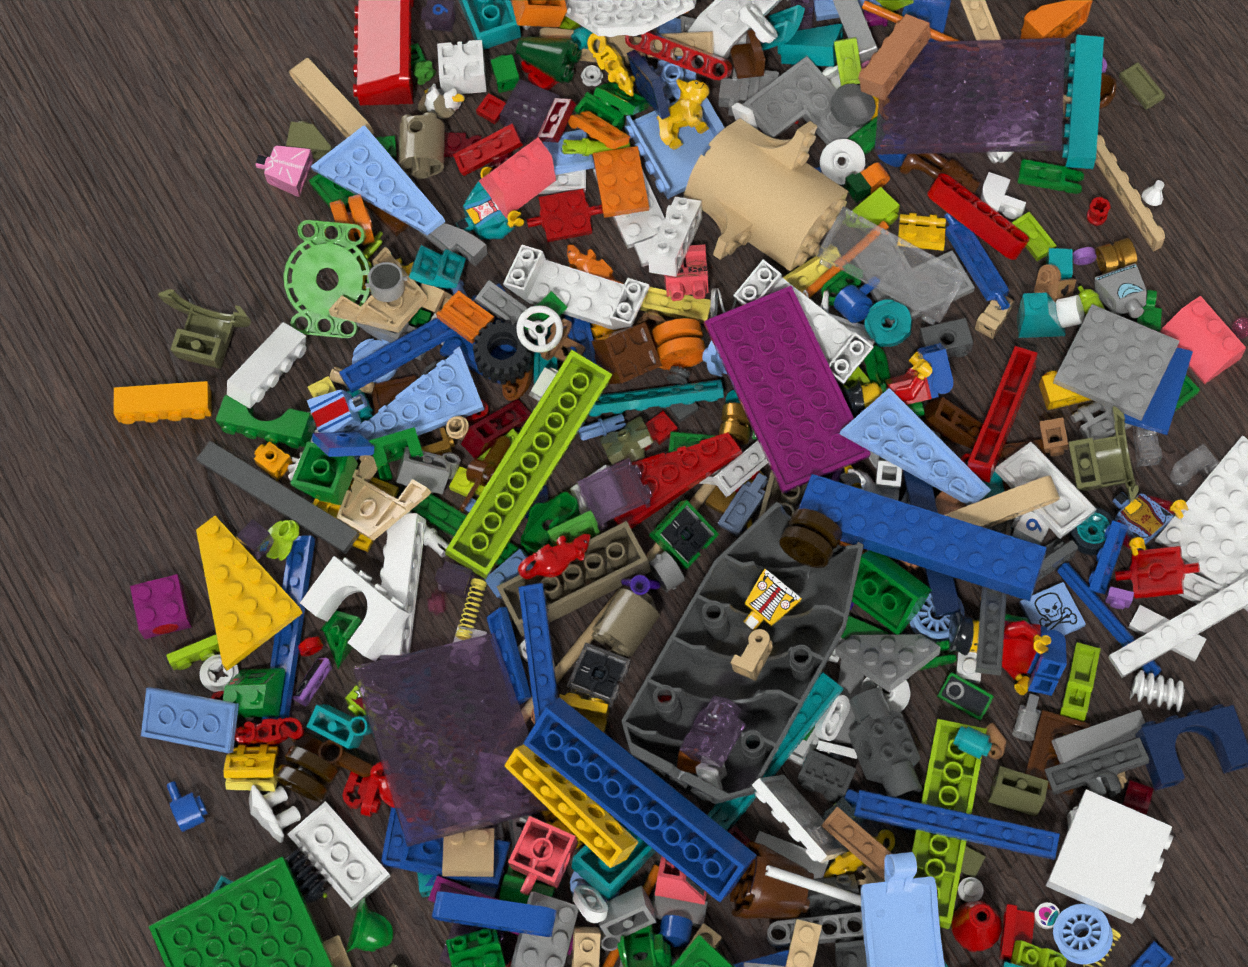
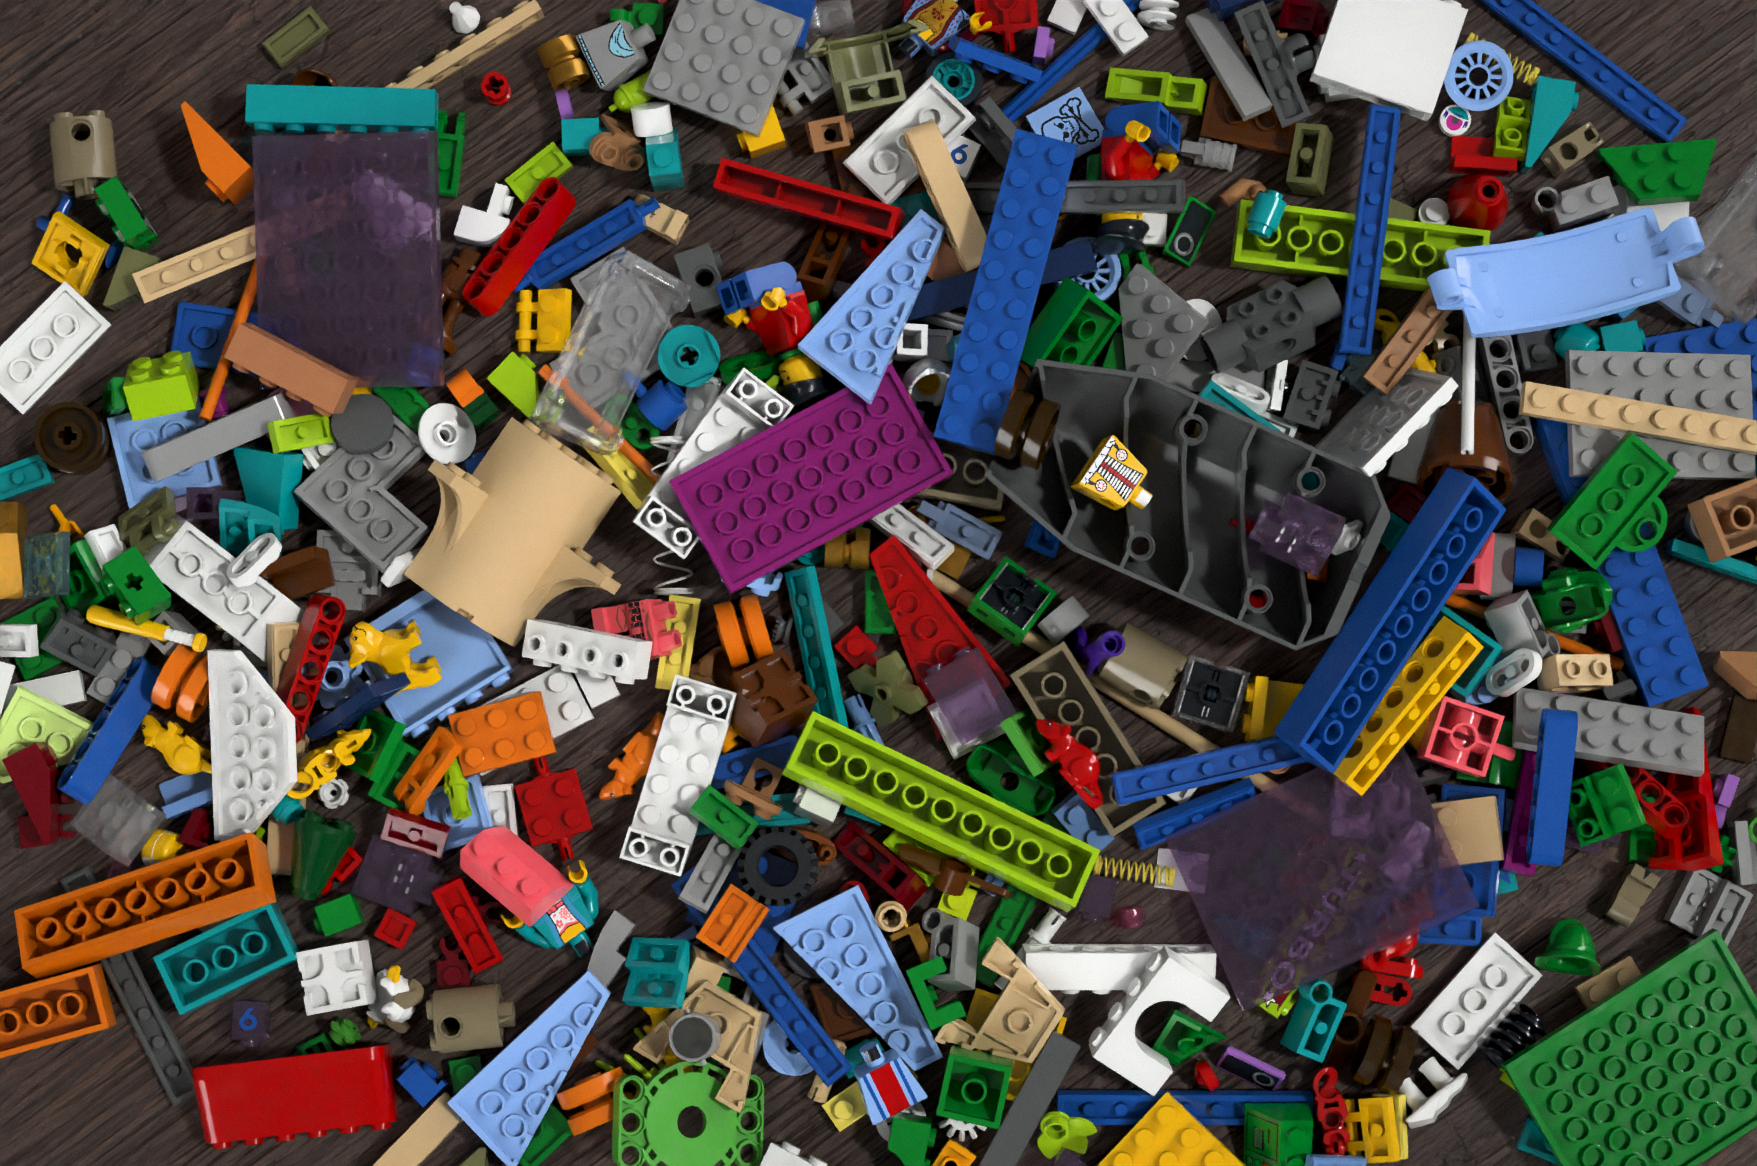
camera: 100 degrees left, 15 degrees up
(343, 444) = (939, 1064): blue plate -> none
(382, 116) = (421, 1080): none -> blue brick
(523, 322) = (746, 827): white piece -> none
(754, 656) = (1176, 486): tan leg -> none

